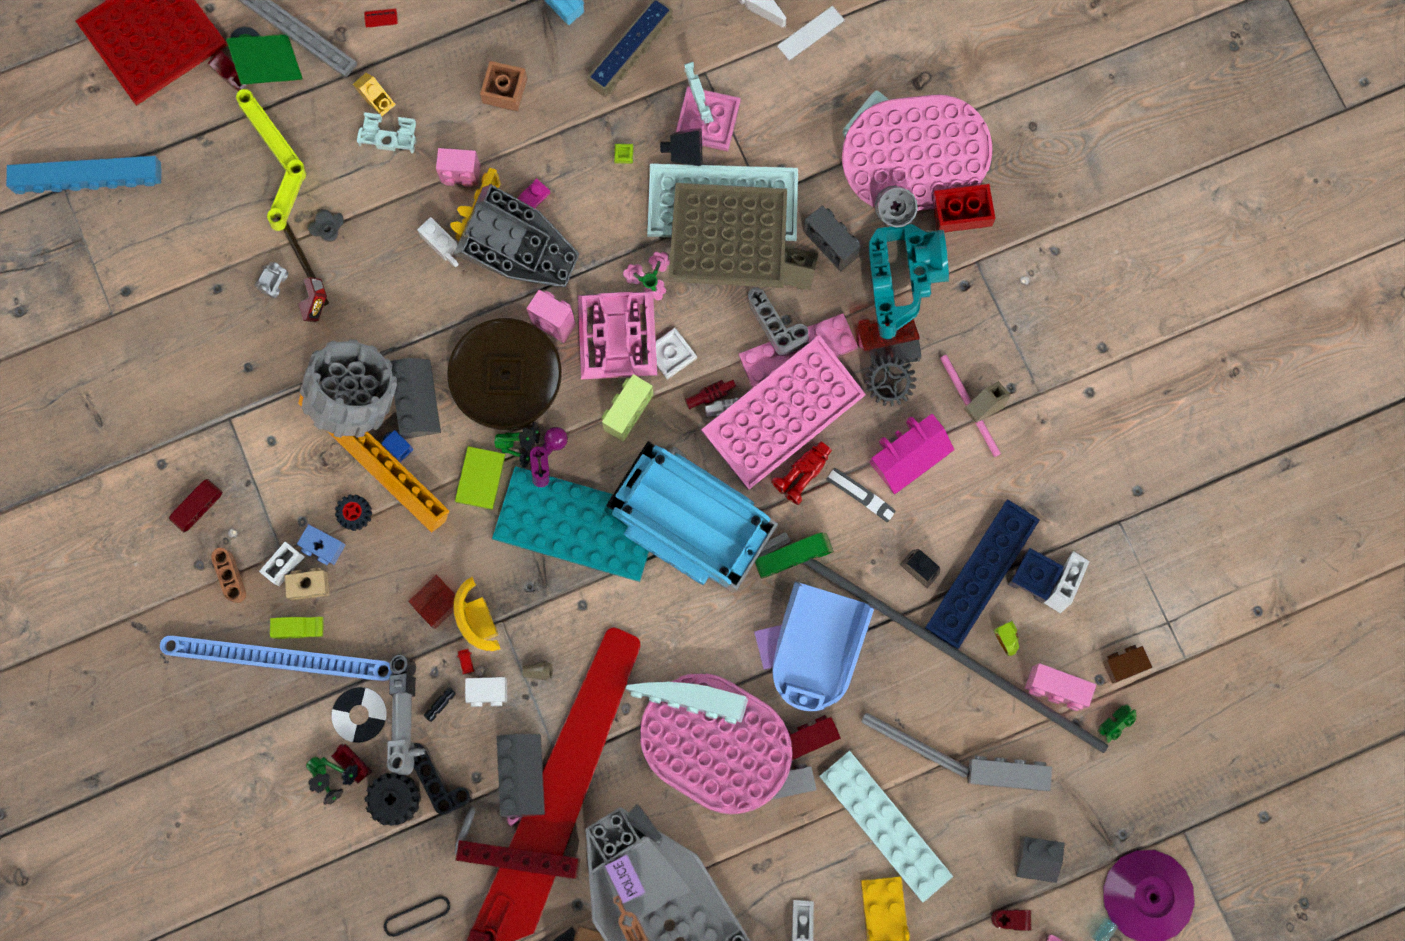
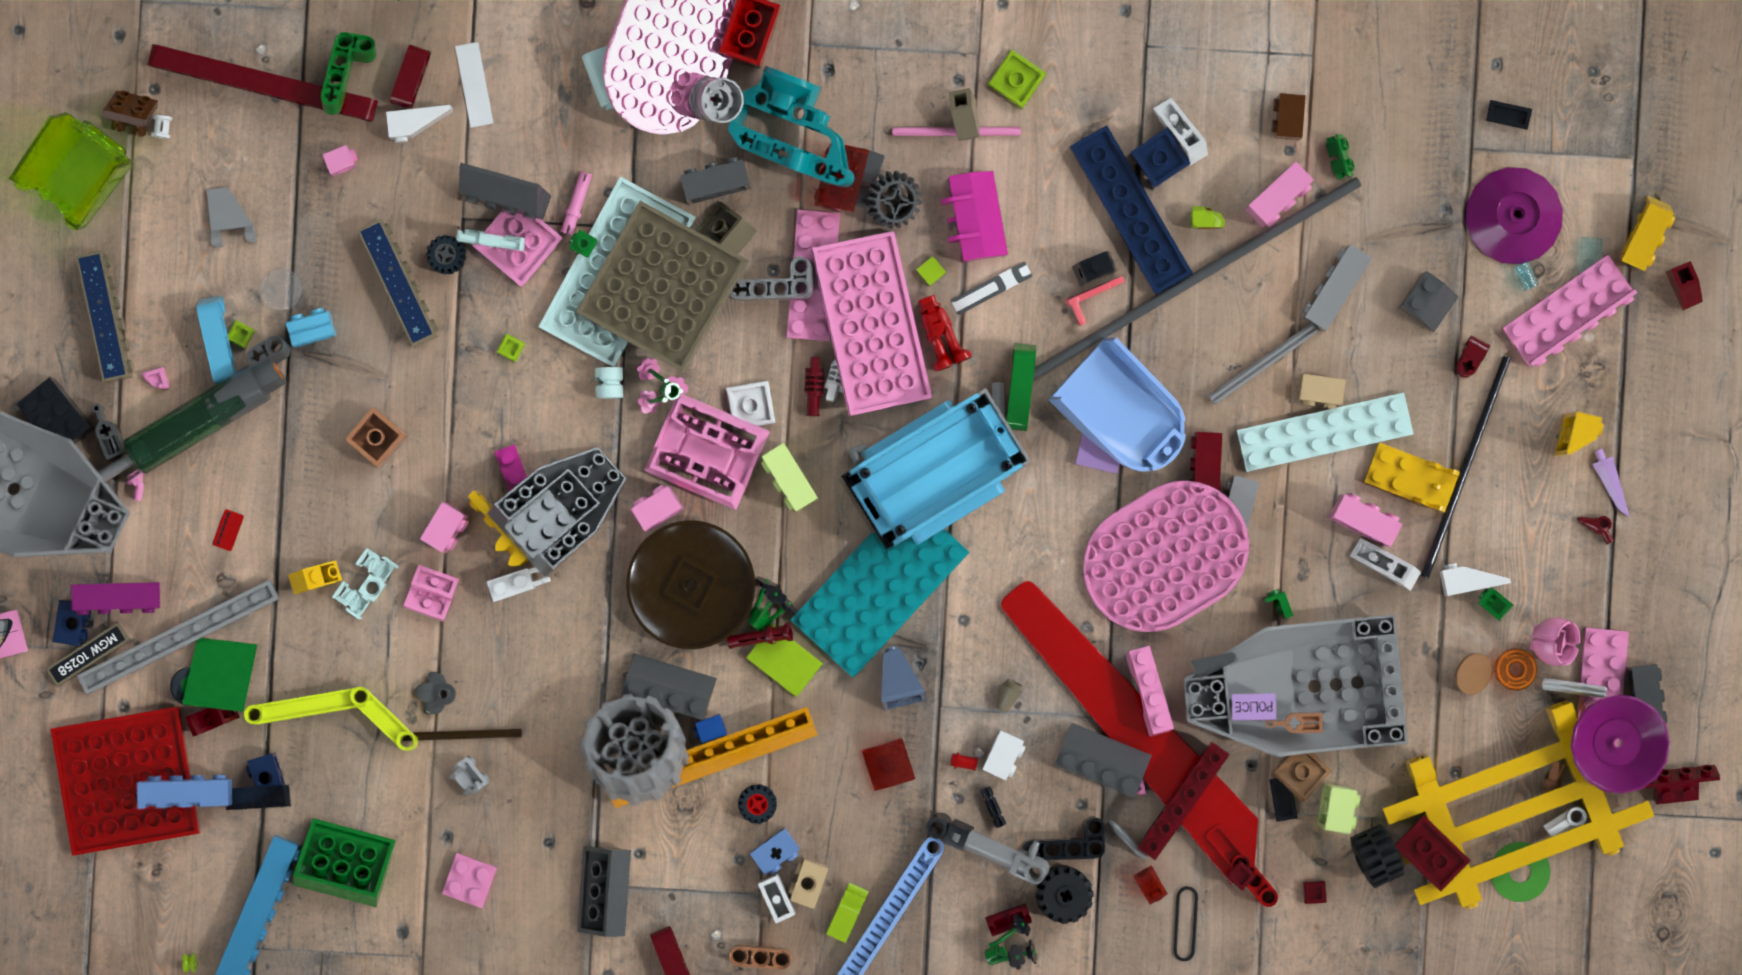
camera: 65 degrees left, 10 degrees up
(29, 143) = (189, 963): none -> lime bush
(158, 72) = (184, 792): none -> medium blue wedge
(159, 219) = (344, 862): none -> green slope
(179, 128) = (260, 797): none -> black tile
(189, 321) = (469, 880): none -> bright pink plate
(200, 141) = (269, 764): none -> dark blue brick
(226, 427) = (604, 891): none -> dark grey slope
(312, 306) = (521, 748): slope -> none
(343, 706) = (944, 891): sticker -> none
(403, 185) = (431, 593): none -> bright pink slope
(435, 868) = (1150, 885): none -> clear red bracket
(475, 619) = (930, 732): yellow piece -> none
(494, 454) = (770, 635): none -> dark red pin
(505, 575) = (899, 681): none -> sand blue slope
(555, 440) = (784, 567): magenta beam -> none
(597, 785) = (1147, 679): none -> bright pink arch
(633, 236) = (609, 382): none -> light aqua wheel
(670, 65) = (438, 254): none -> black wheel
(685, 147) = (540, 282): black torso -> none
(694, 698) = (1114, 555): light aqua slope -> none
(722, 863) = (1283, 607): none -> green bracket
(731, 163) = (582, 243): none -> green bracket
(740, 85) = (503, 192): none -> dark grey slope
(759, 147) = (576, 203): none -> bright pink pin
(830, 897) = (1365, 519): none -> bright pink brick
(849, 440) = (931, 271): none -> lime tile
(885, 564) = (1074, 300): none -> coral piece
(918, 805) = (1321, 390): none -> tan brick
(1037, 432) = (1016, 79): none -> lime tile
(1229, 848) = (1509, 114): none -> black tile

